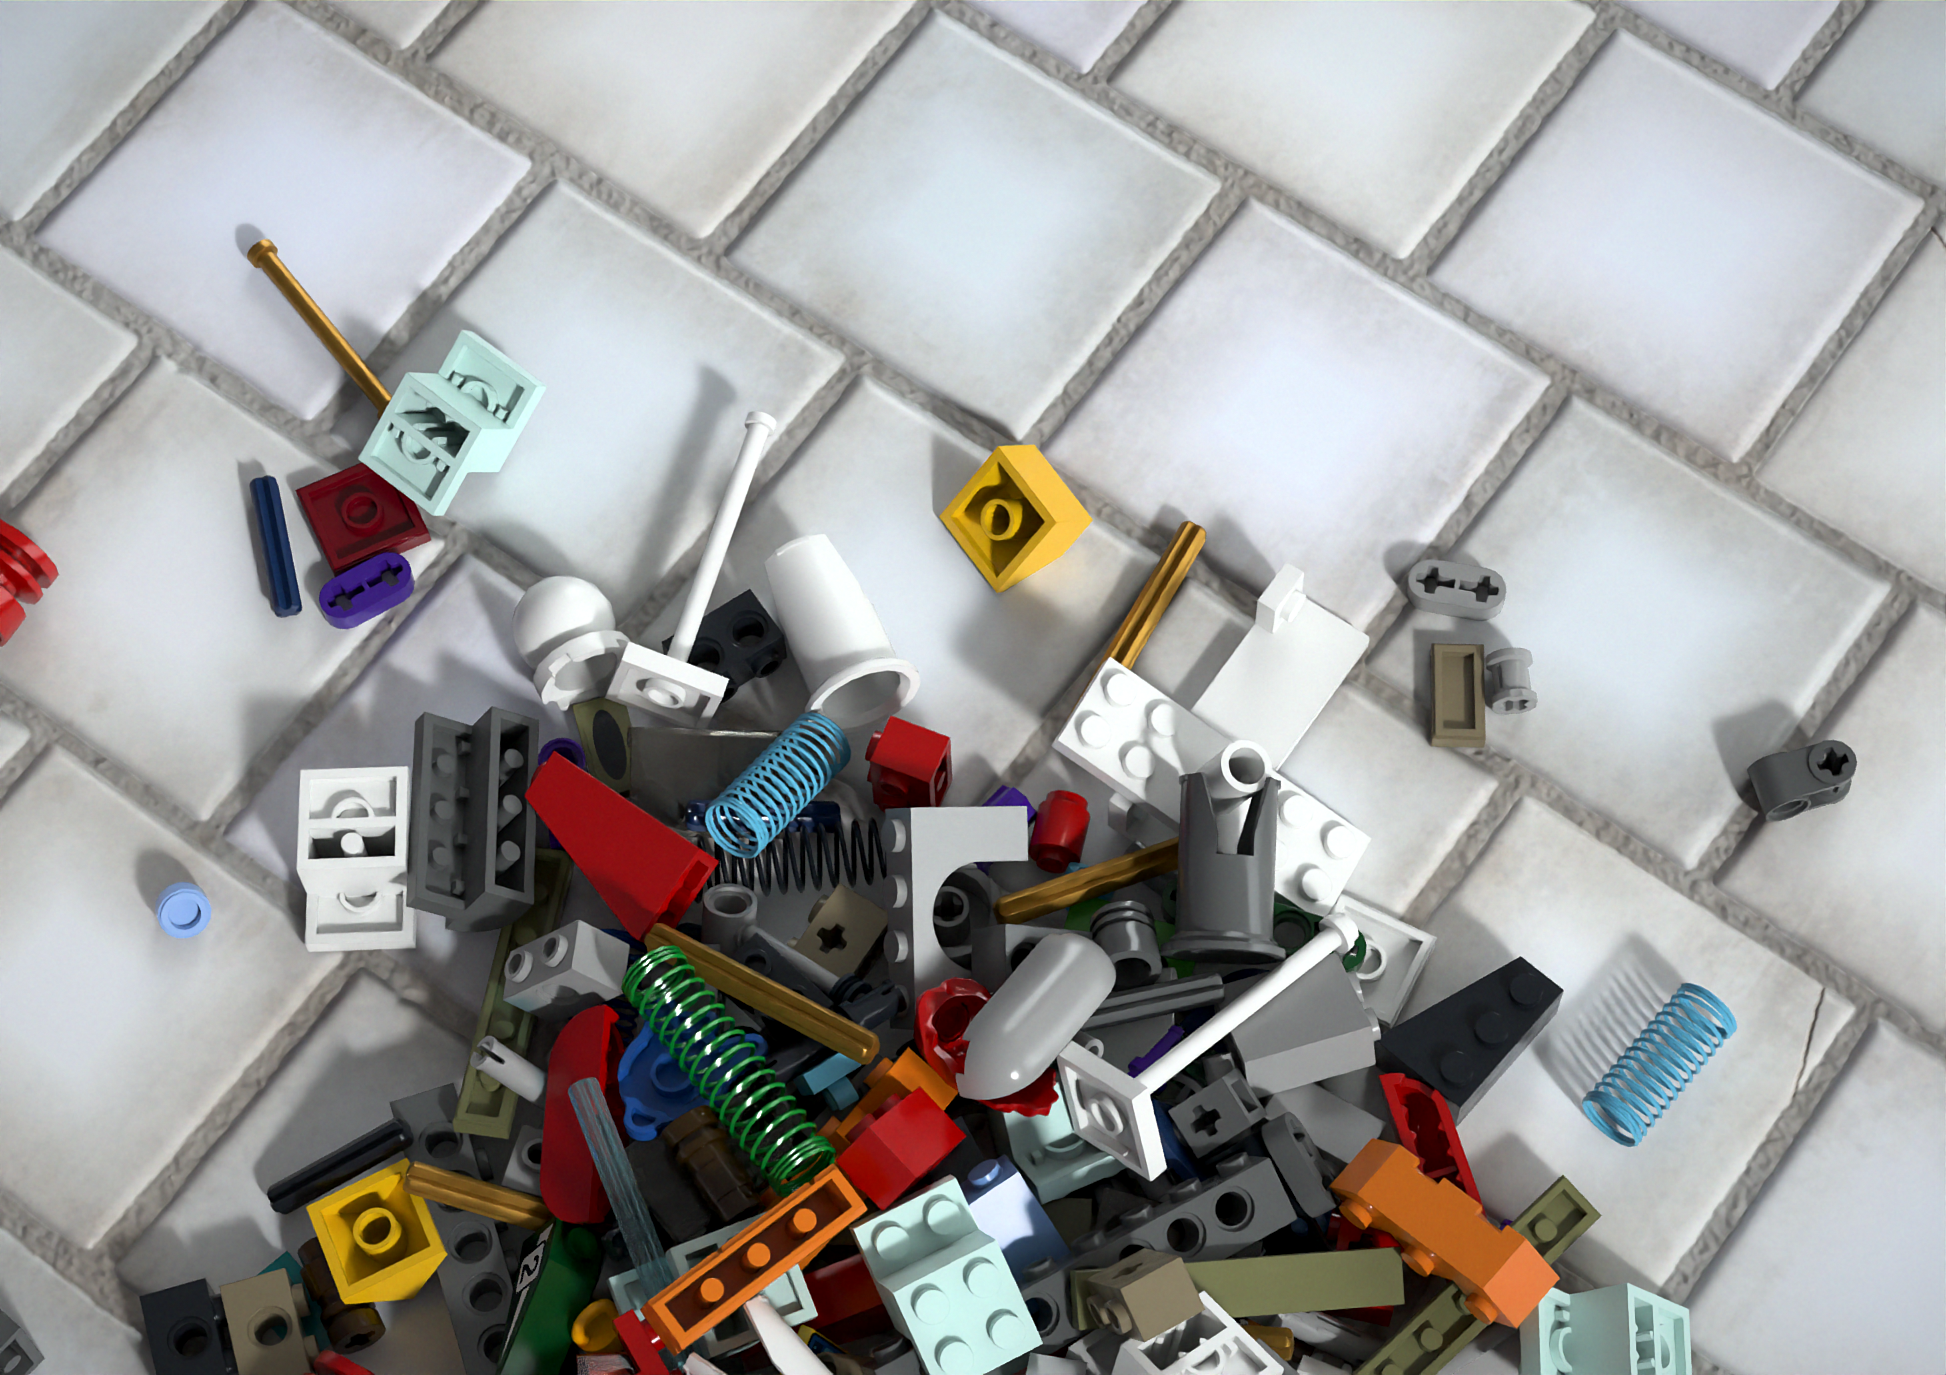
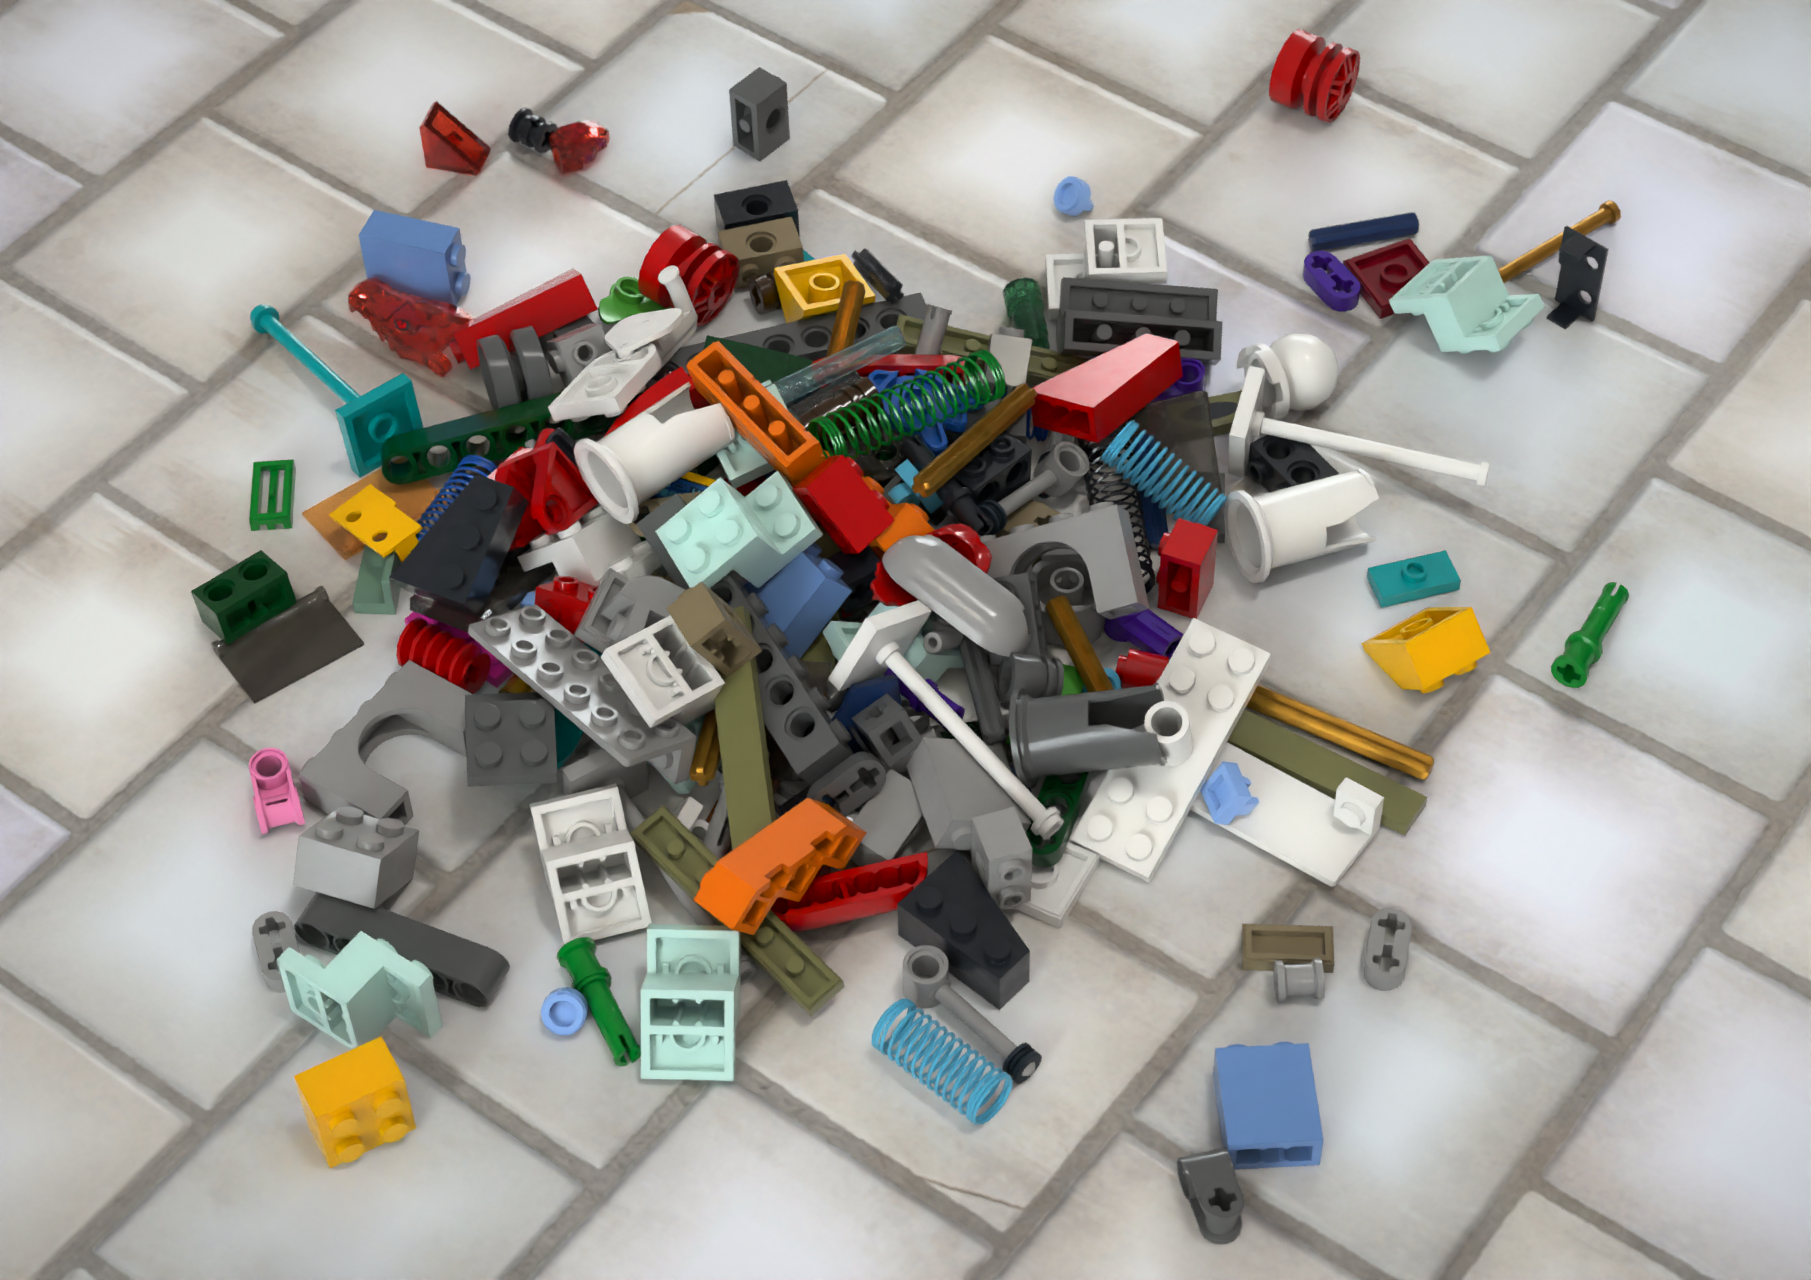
camera: 90 degrees right, 15 degrees down
(409, 285) = (1578, 276): none -> black piece
(430, 970) = (1026, 309): none -> clear green axle
(895, 527) = (1413, 578): none -> teal plate
(1011, 348) = (1585, 645): none -> green pin
(1209, 628) = (1324, 768): none -> olive tile
(1272, 731) = (1228, 794): none -> light blue tile
(1400, 978) = (1002, 857): none -> light grey brick
(1643, 982) = (927, 993): none -> light grey piece
(1685, 720) = (1268, 1105): none -> medium blue brick

